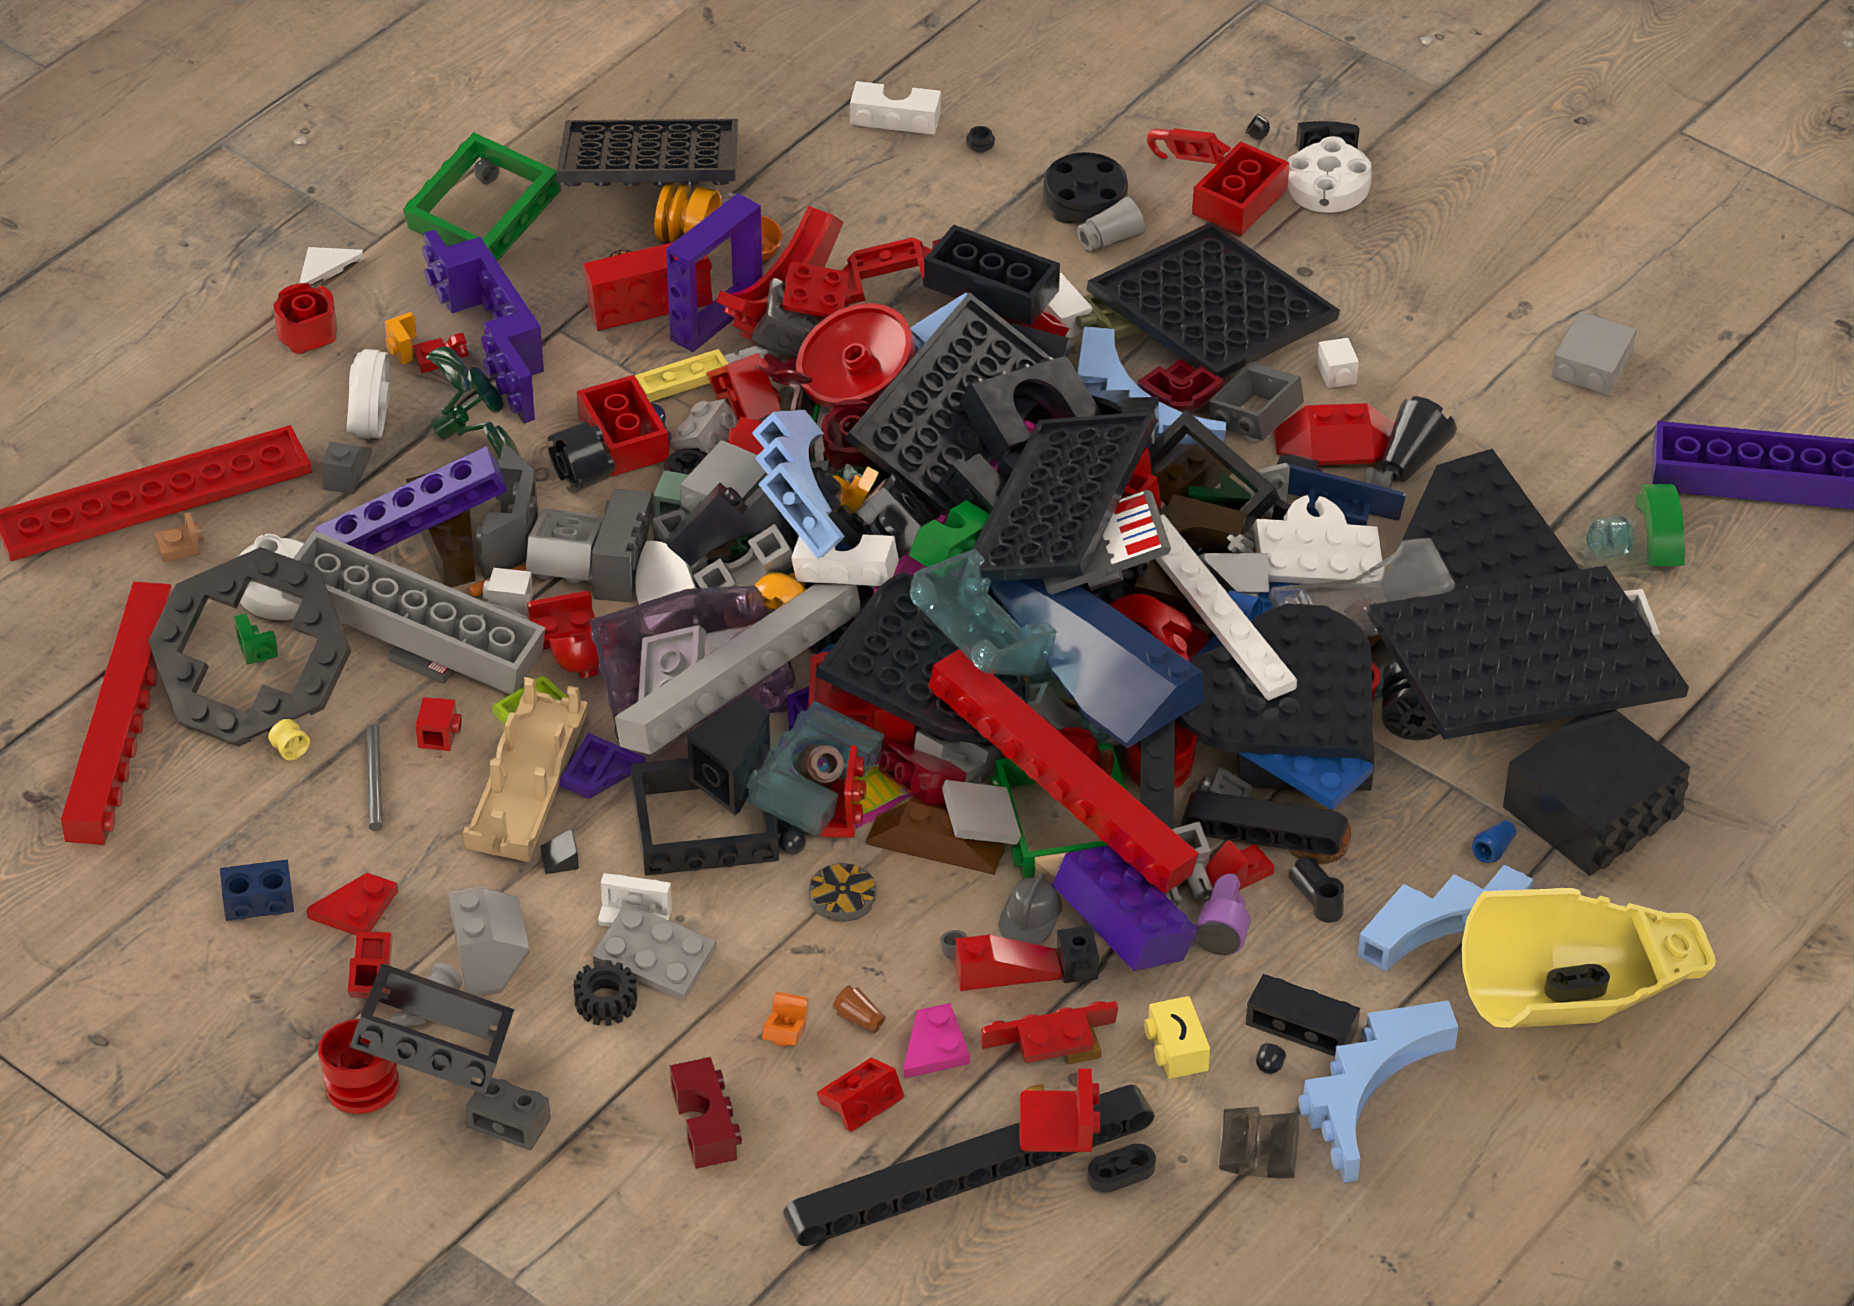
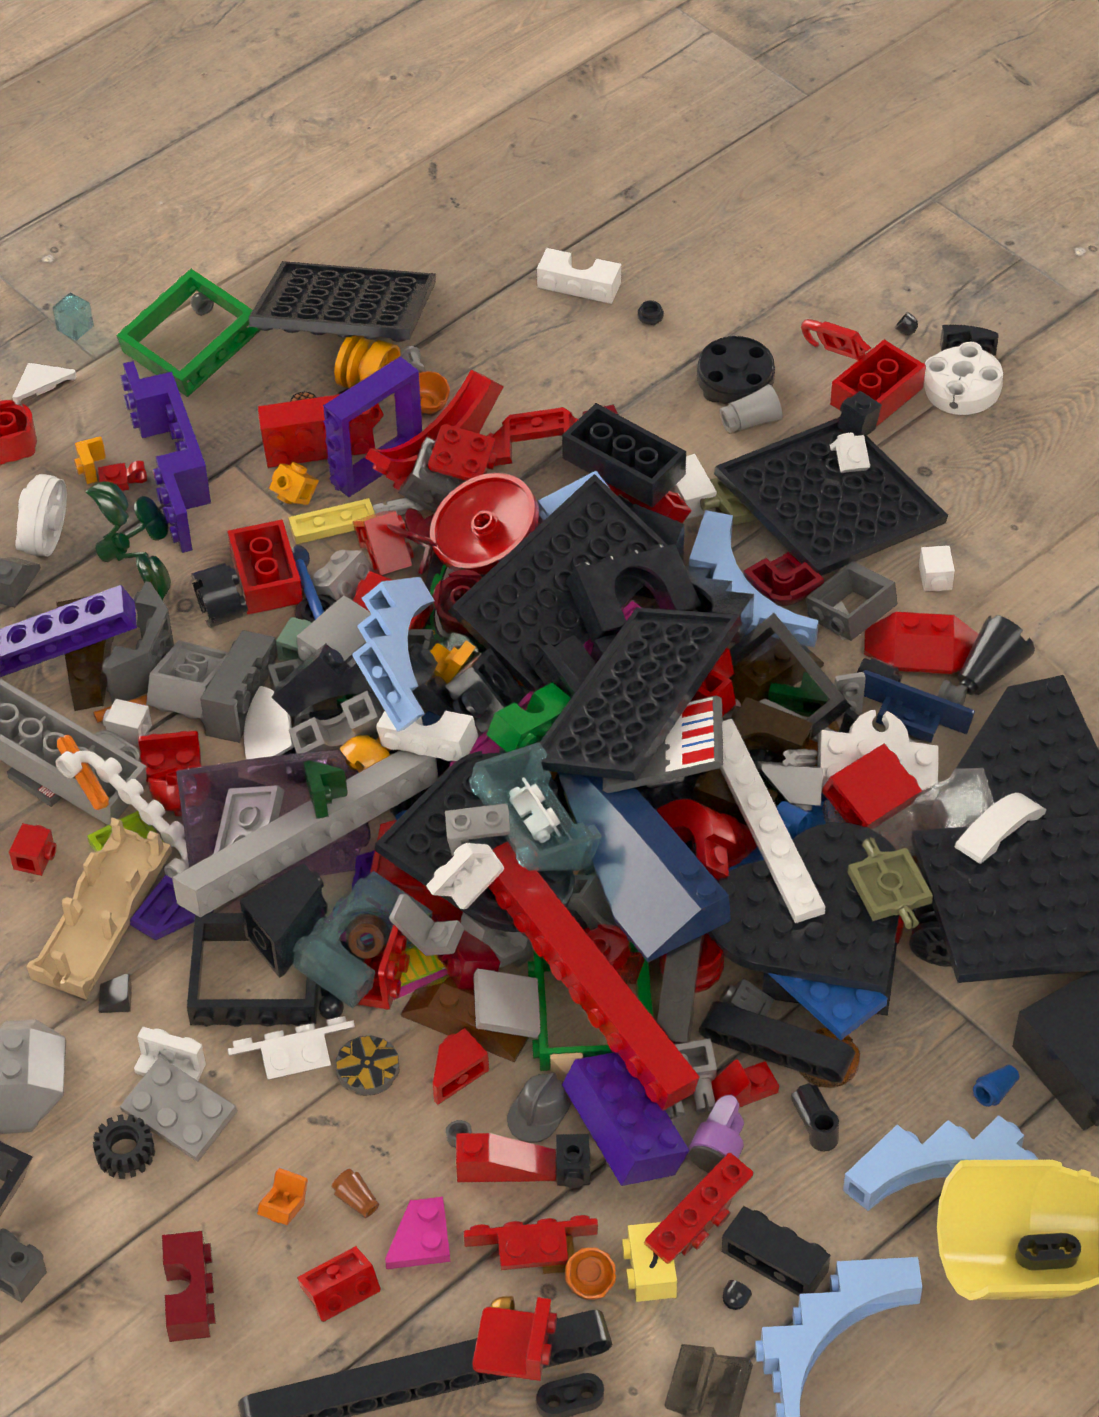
camera: 10 degrees right, 5 degrees up
(347, 195) = (73, 316): none -> clear light blue brick
(470, 629) = (129, 792): none -> white bar
(481, 637) = (85, 777): none -> orange axle
(633, 341) = (293, 484): none -> light orange brick
(679, 448) = (309, 589): none -> blue bar
(750, 618) = (324, 784): none -> dark green slope
(763, 886) = (293, 1052): none -> white bracket
(885, 757) = (422, 931): none -> light grey bracket
(921, 634) = (476, 823): none -> light grey bracket
(923, 683) = (466, 874): none -> white bracket
(940, 879) = (458, 1064): none -> red slope
(975, 608) = (542, 821): none -> white hinge
(1118, 1054) = (590, 1273): none -> orange hair
(1220, 982) = (699, 1210): none -> red bracket
(1228, 218) = (859, 414): none -> black brick
(1228, 255) = (851, 452): none -> white bracket
(1319, 569) = (872, 788): none -> red brick
(1358, 652) = (890, 884): none -> olive plate
(1454, 588) = (996, 824): none -> white slope

